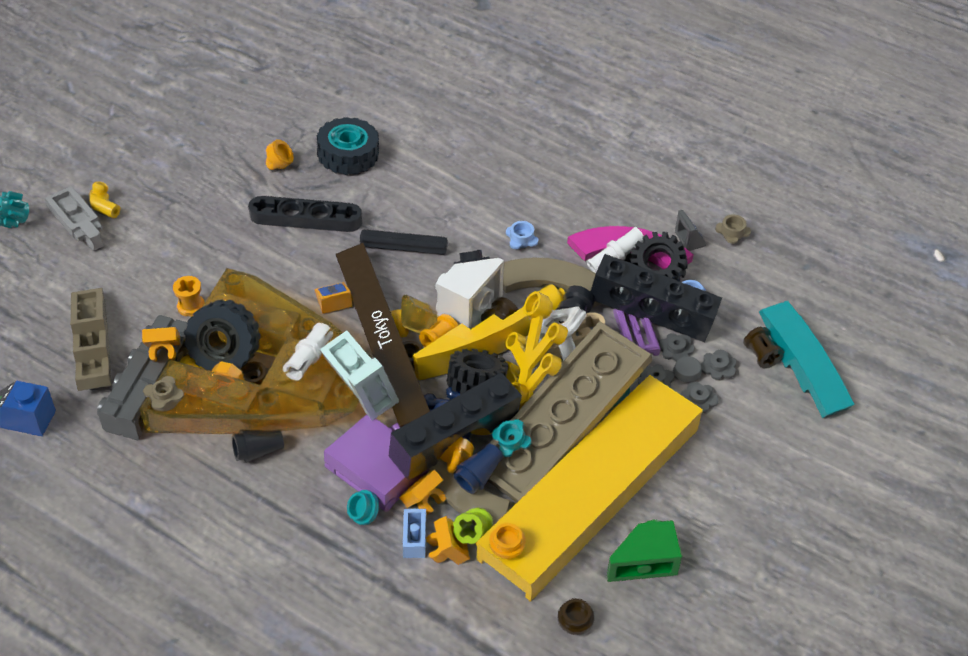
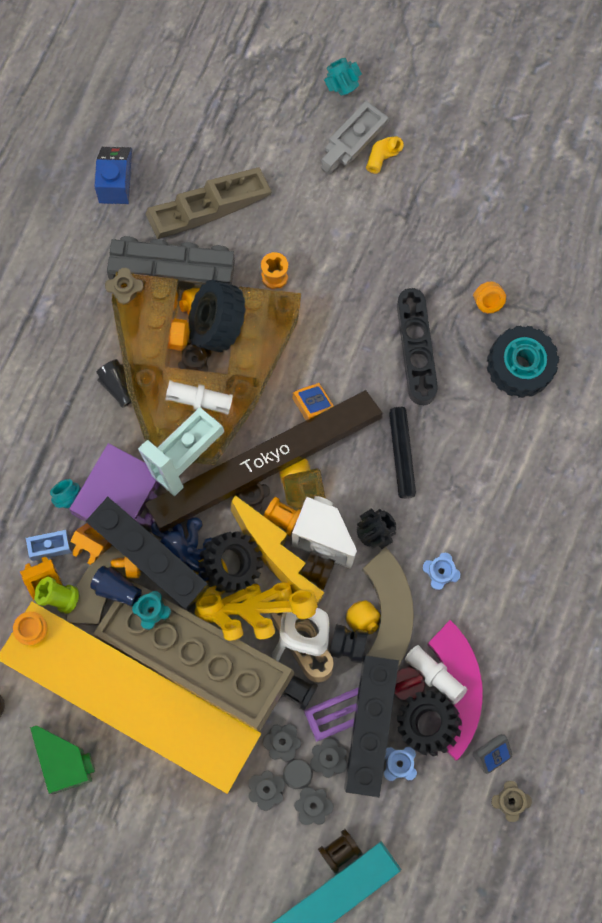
camera: 75 degrees right, 25 degrees up
(161, 338) = (192, 264): light orange tile -> none

